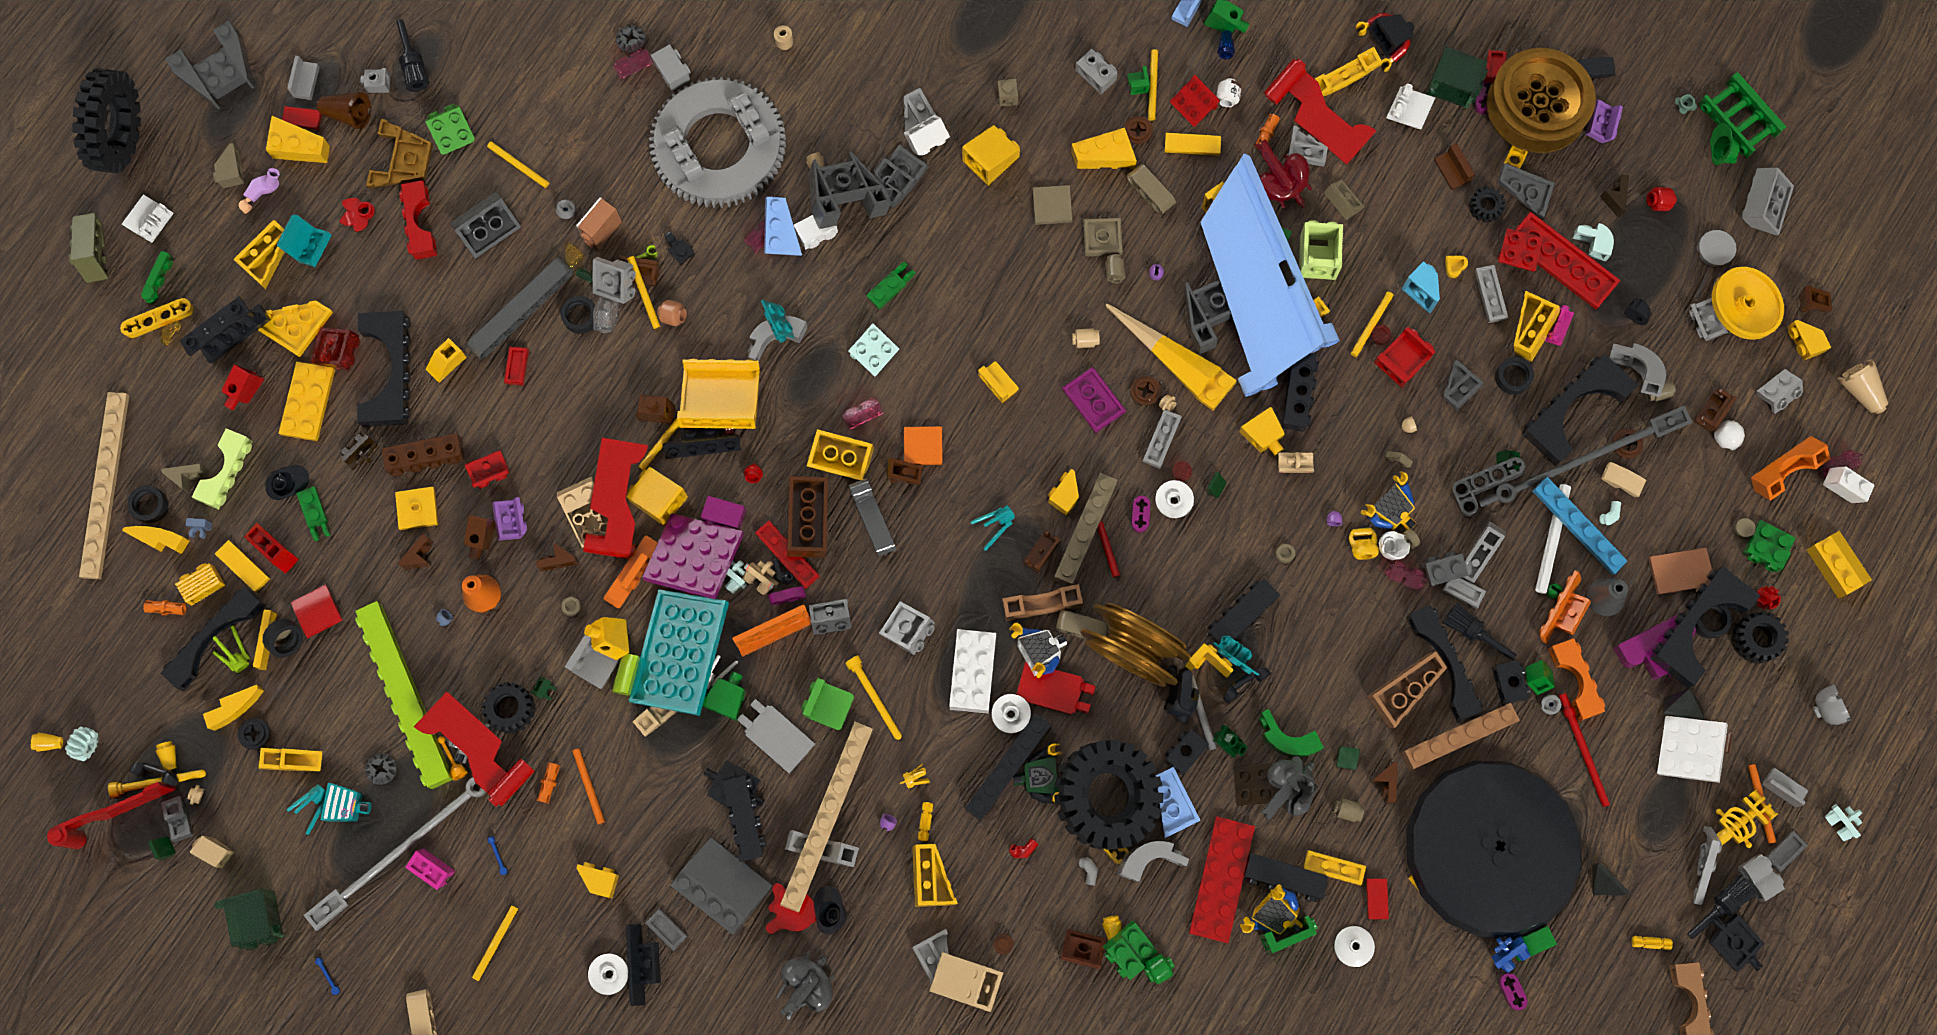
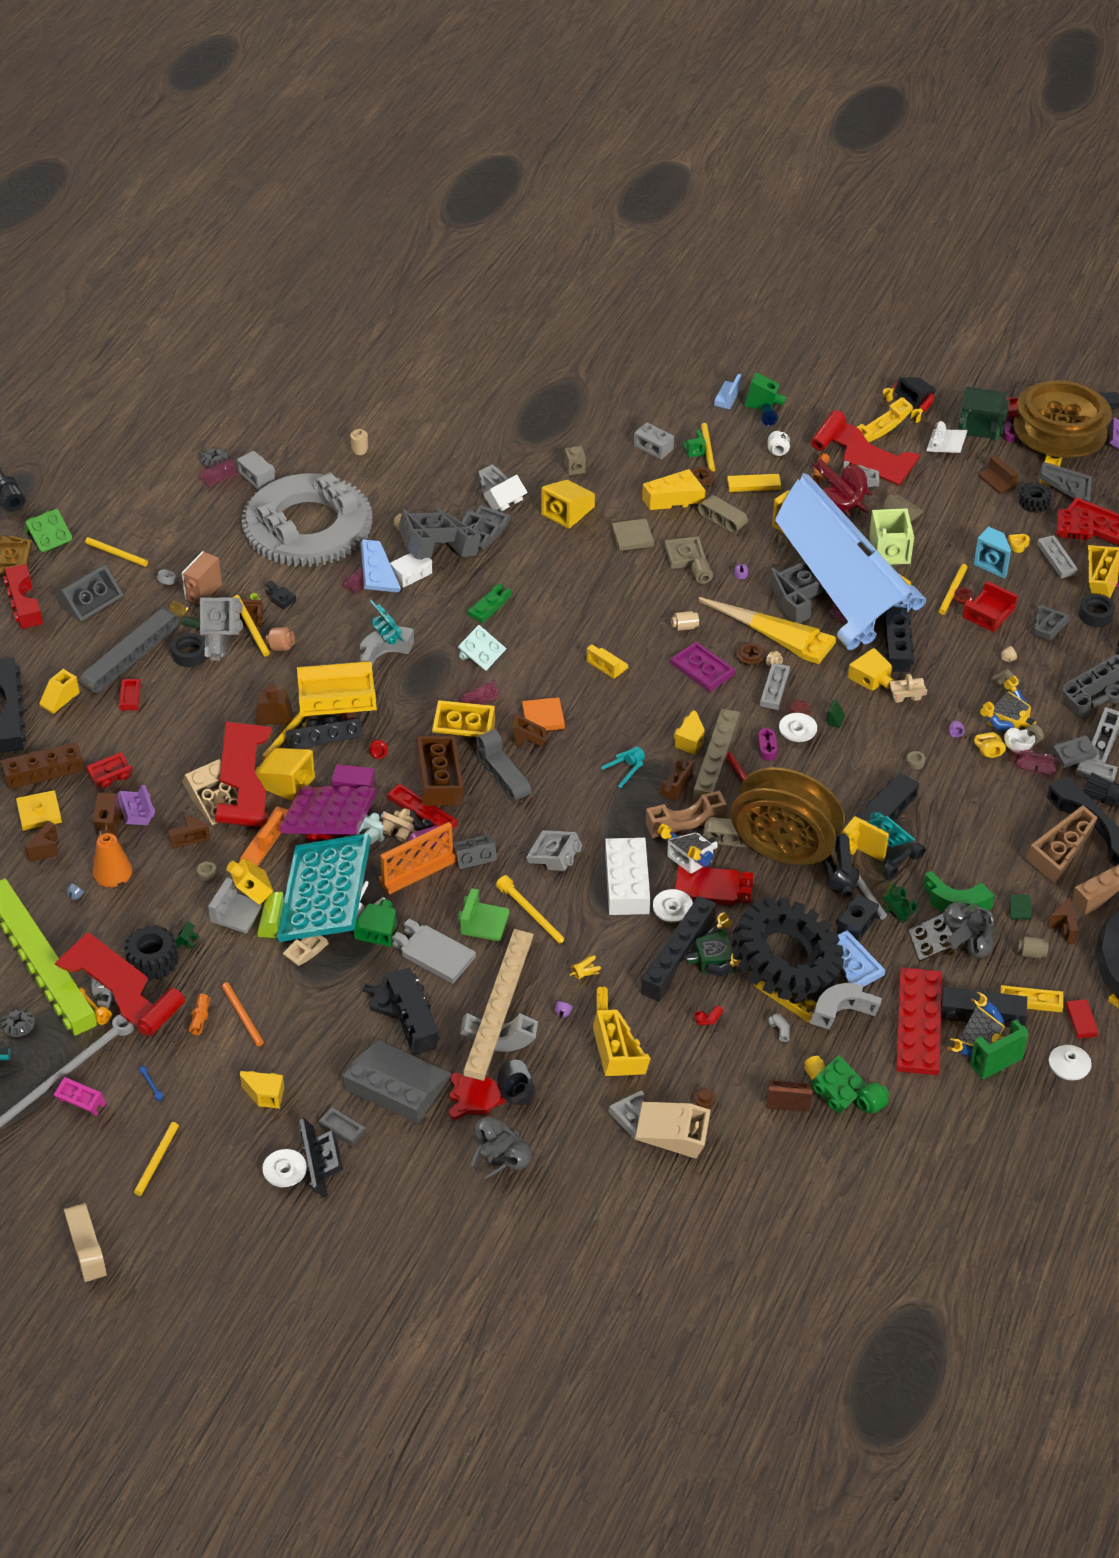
camera: 10 degrees left, 30 degrees down
(1195, 101) = (749, 452): red hinge -> none

